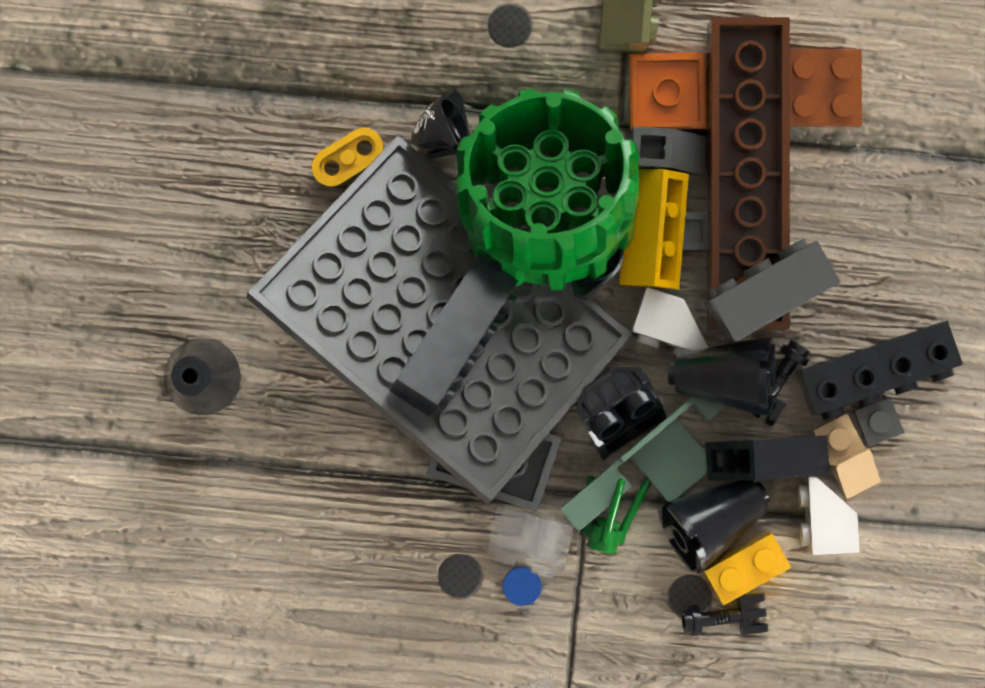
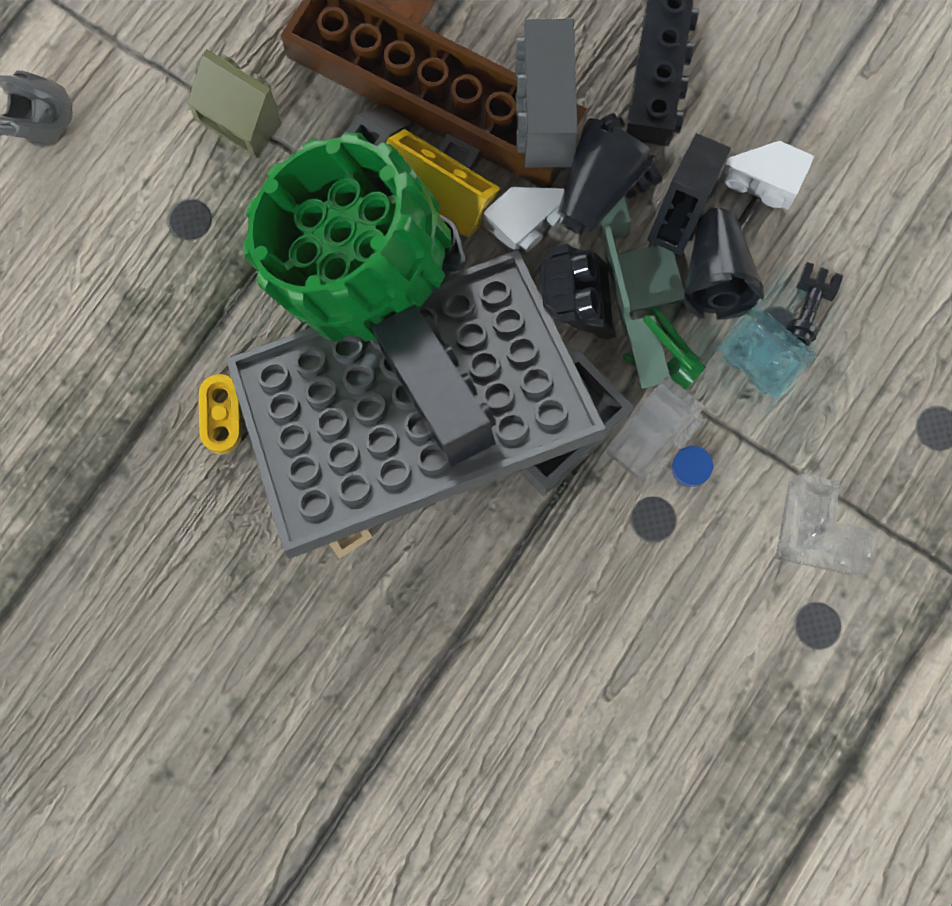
camera: 60 degrees left, 10 degrees down
(216, 381) = (358, 659): black cone -> none
(441, 126) = (242, 316): black hat -> none
(654, 599) = (766, 352): none -> clear light blue brick
(668, 90) = (320, 110): orange tile -> none
(746, 567) = (779, 259): yellow brick -> none
(848, 458) = (733, 128): tan slope -> none
(878, 422) = (705, 93): dark grey plate -> none

